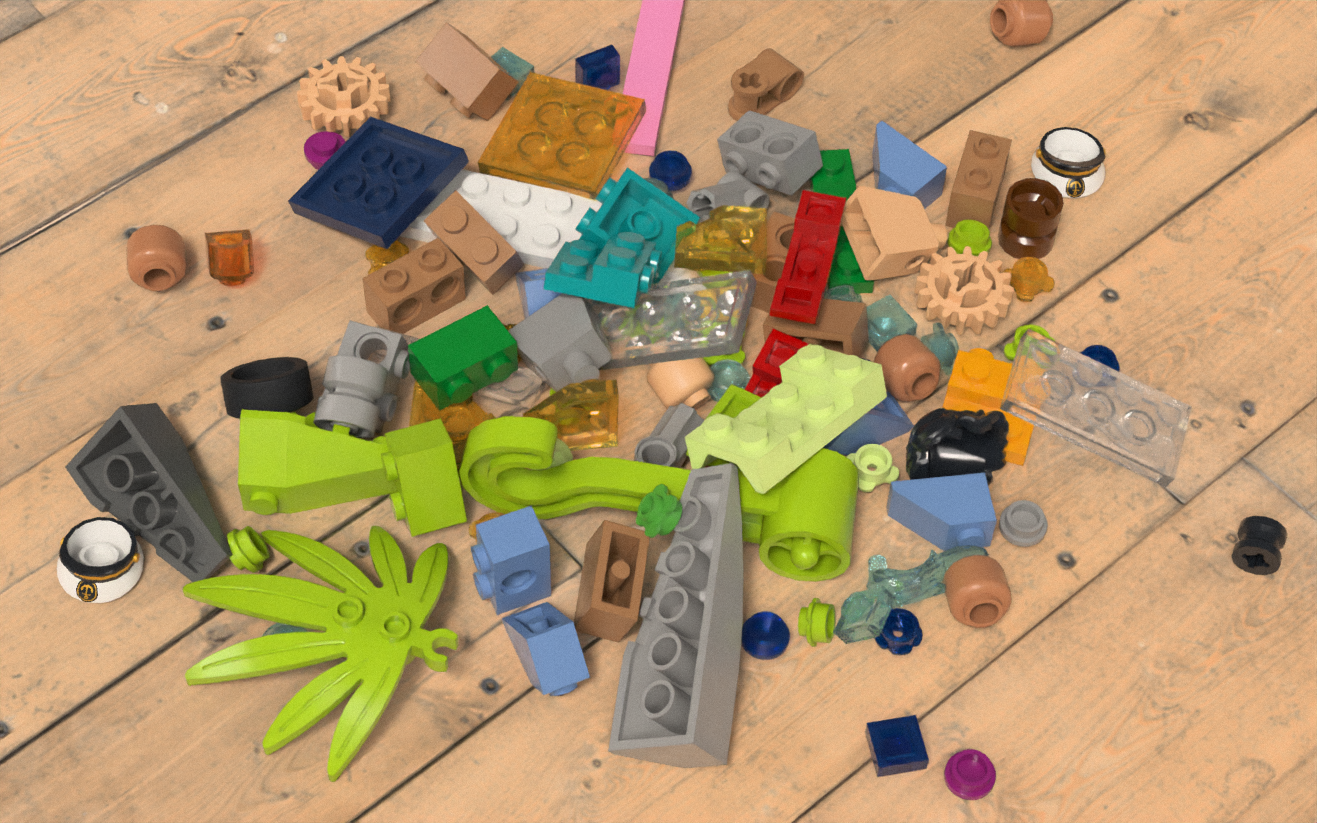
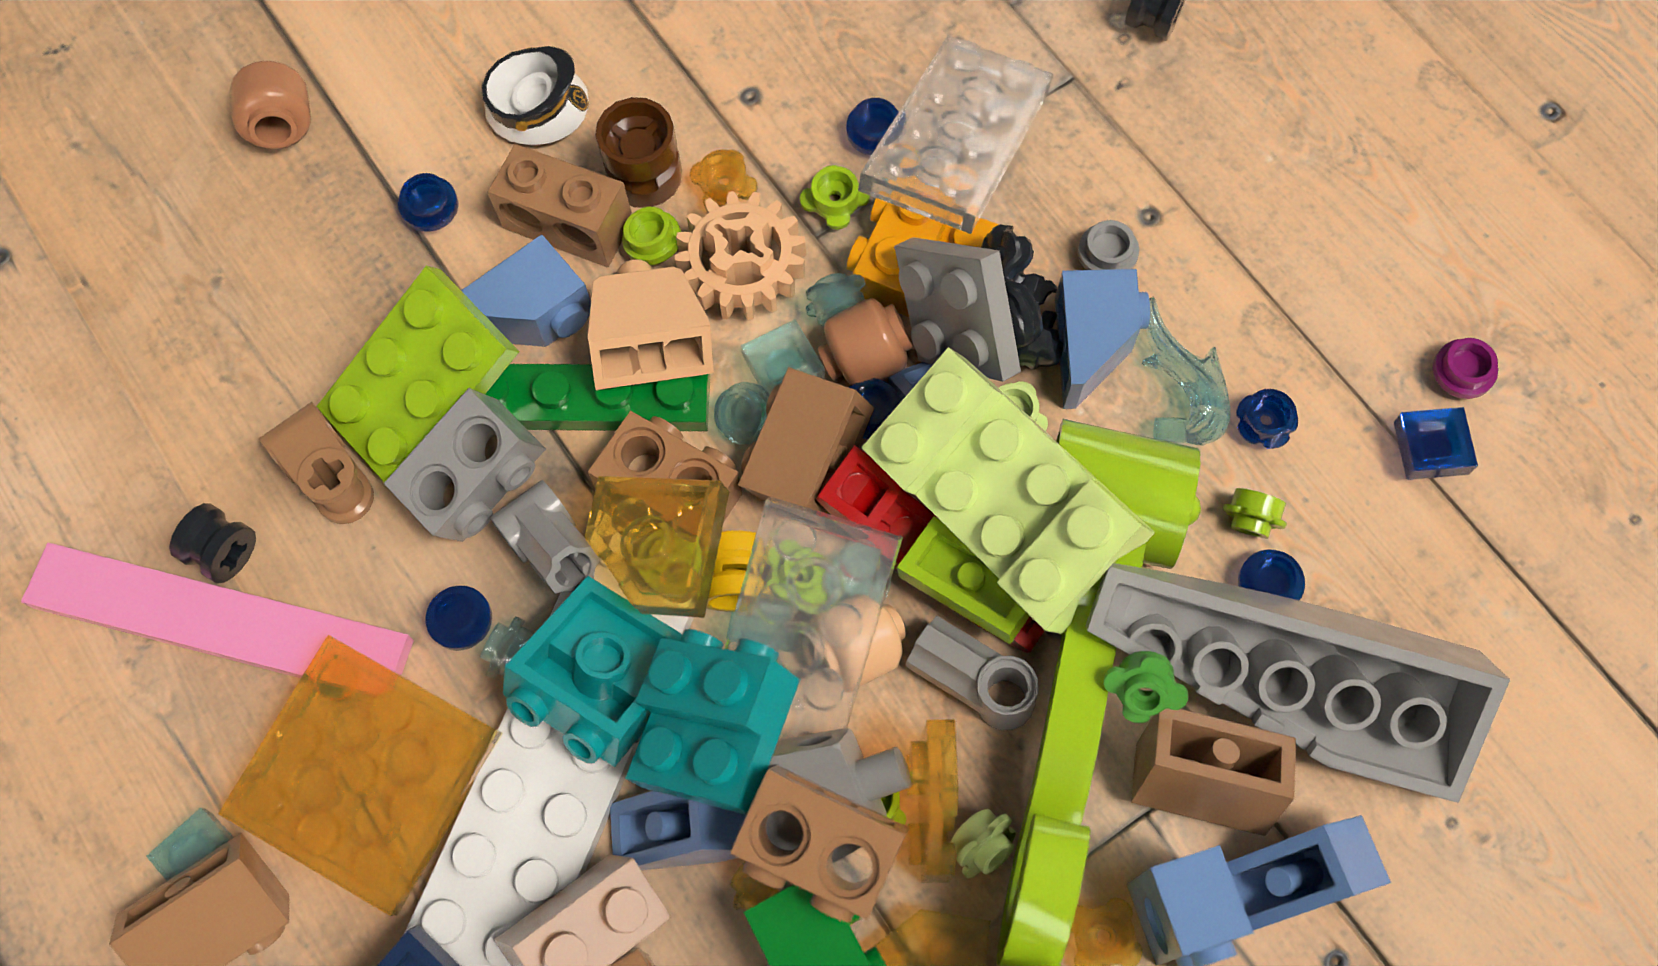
camera: 80 degrees left, 15 degrees up
(530, 323) = (826, 824): none -> medium nougat brick
(599, 68) = (240, 704): clear blue plate -> none
(700, 42) = (212, 543): none -> black wheel
(809, 258) = (711, 436): red slope -> none
(838, 114) = (415, 371): none -> lime plate
(864, 614) = (1252, 451): clear light blue plate -> none
(938, 385) = (959, 303): none -> light grey plate
(969, 114) = (427, 202): none -> clear blue plate
(977, 591) = (1218, 314): nougat head -> none

